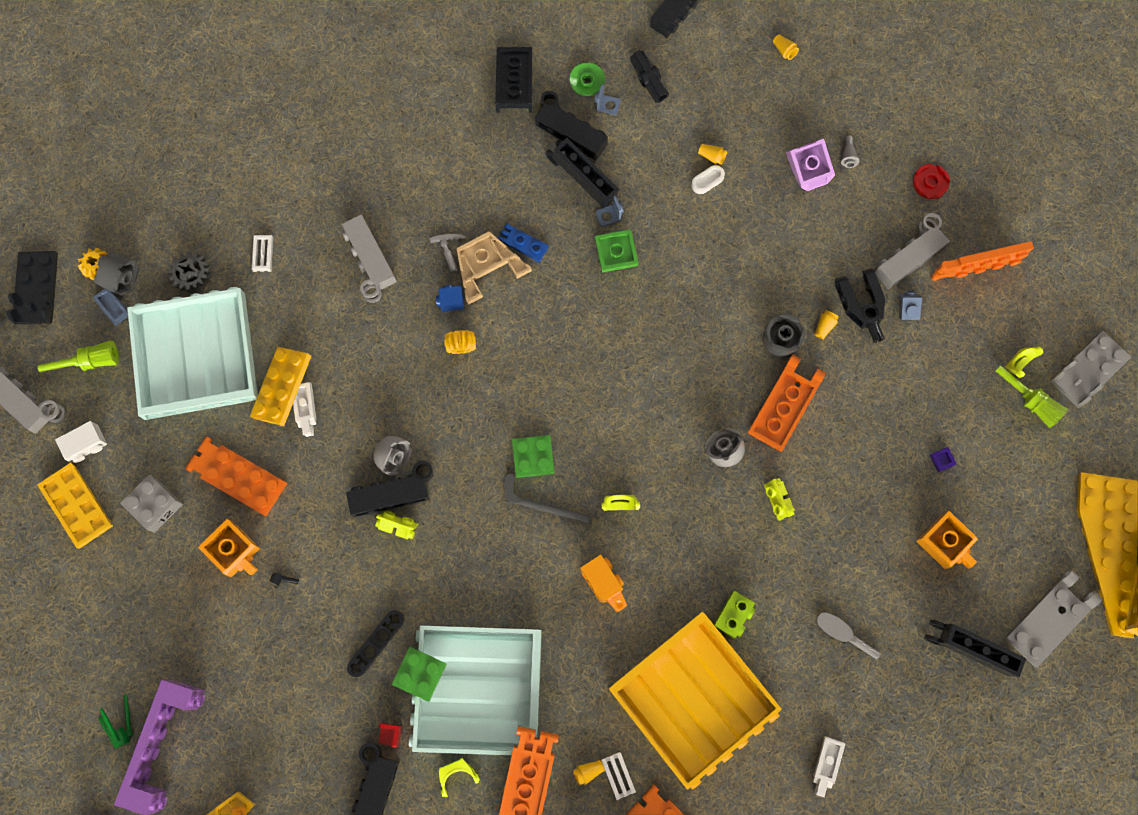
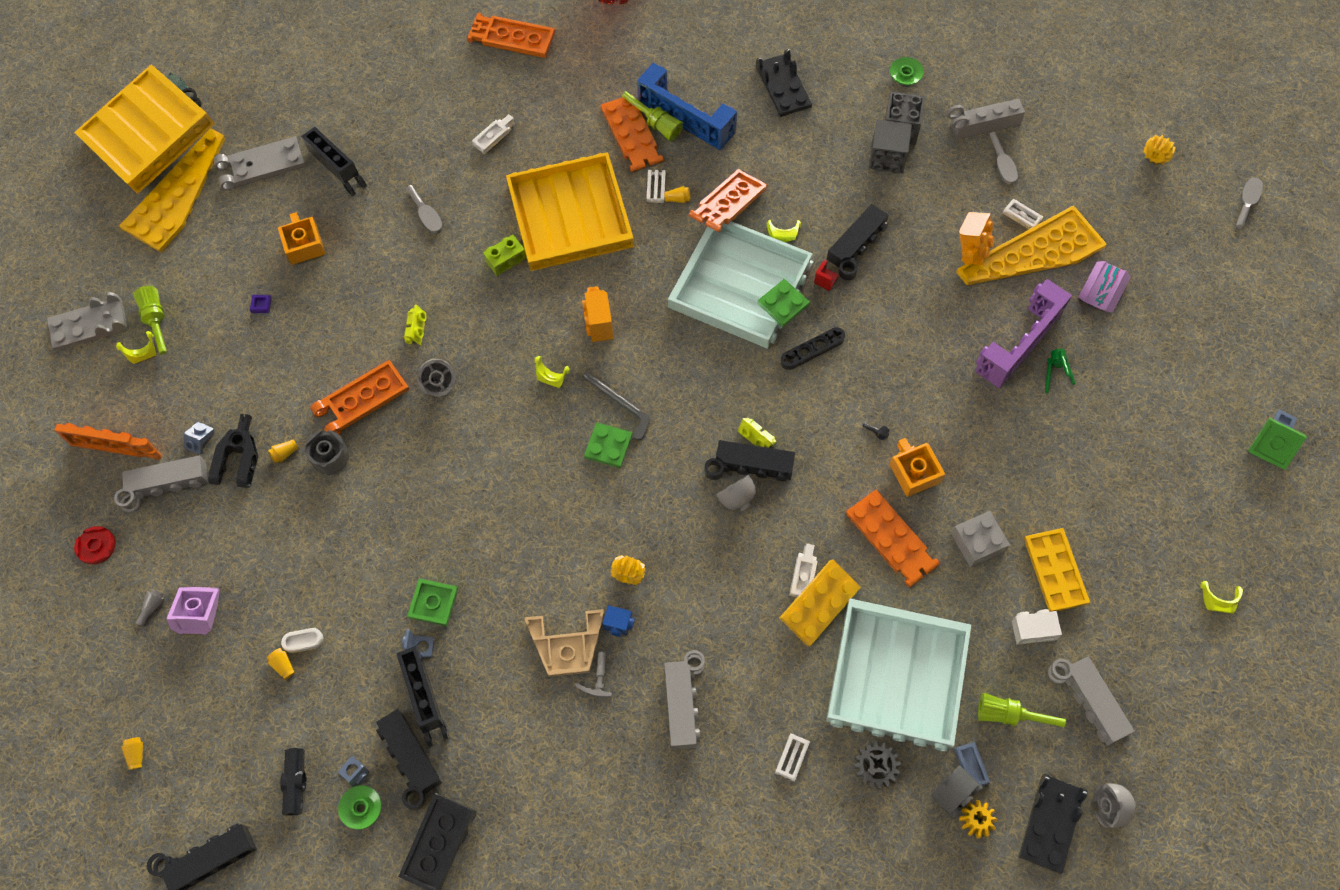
camera: 155 degrees left, 10 degrees down
(523, 243) = (519, 651): blue hinge -> none

